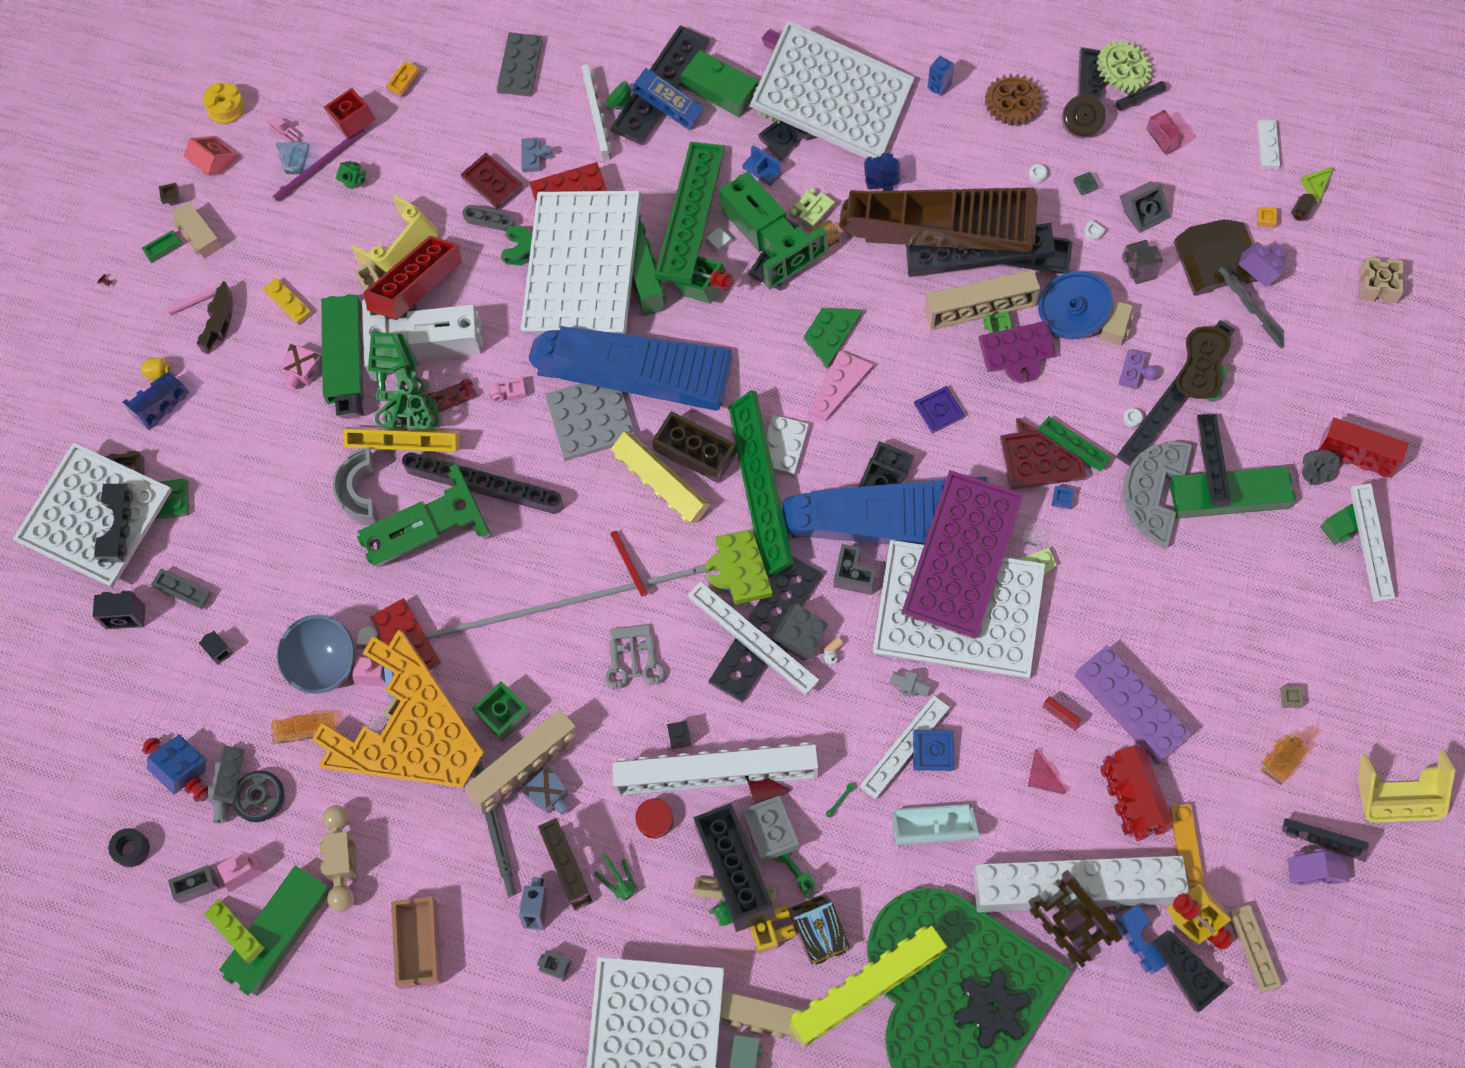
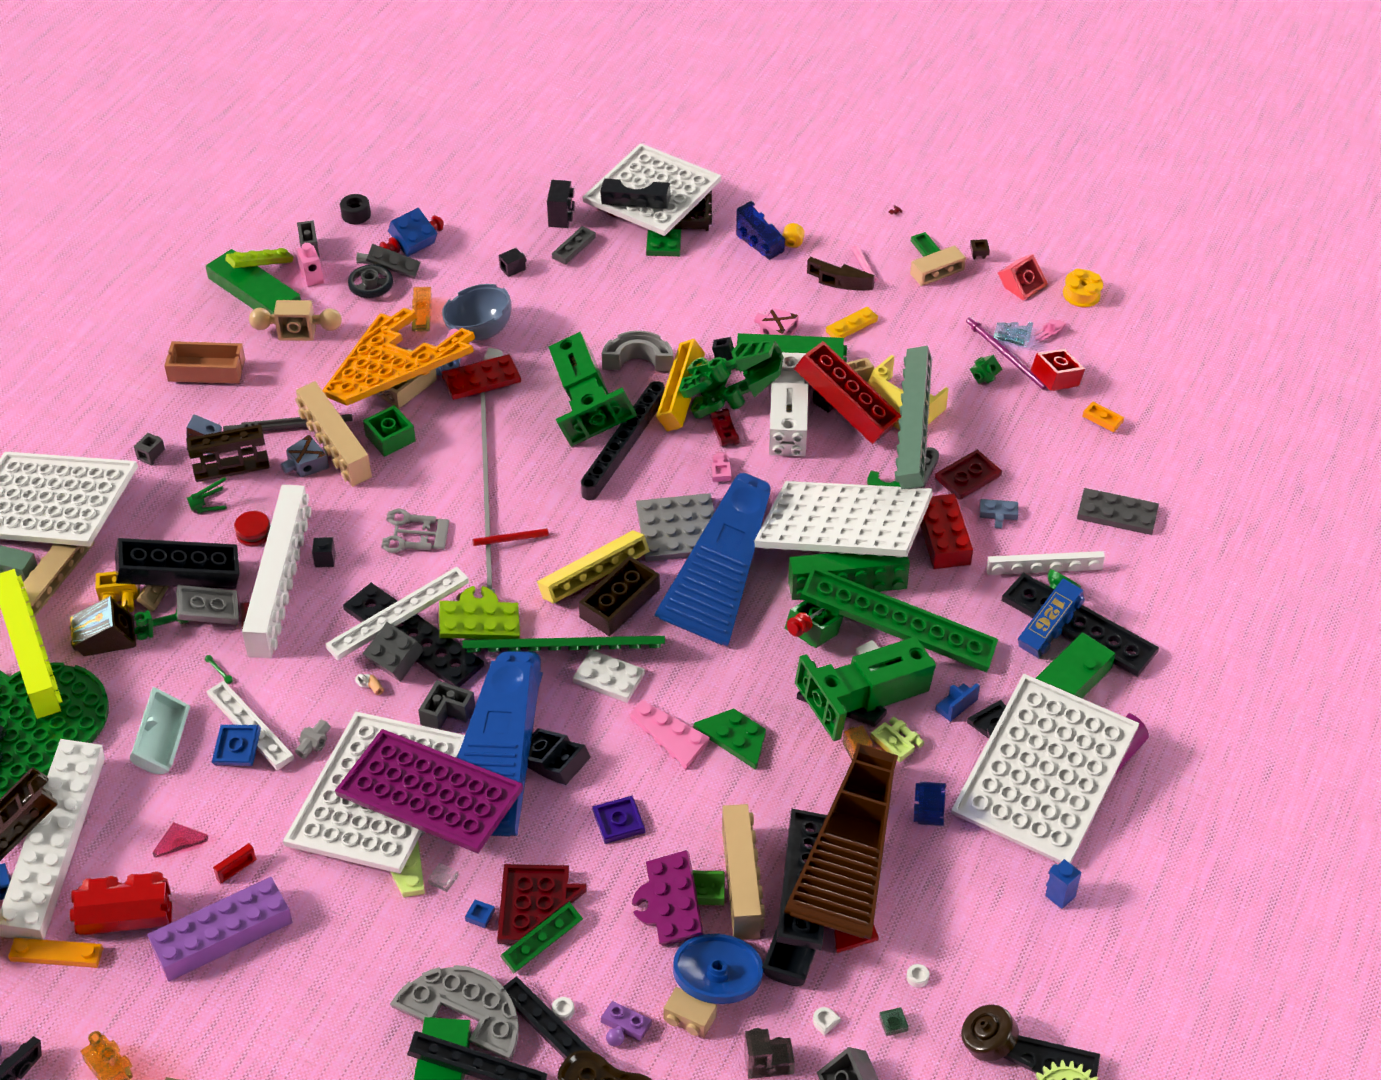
camera: 95 degrees right, 20 degrees down
(446, 212) = (914, 418): none -> sand green brick
(1007, 94) = (1048, 966): dark orange gear -> none

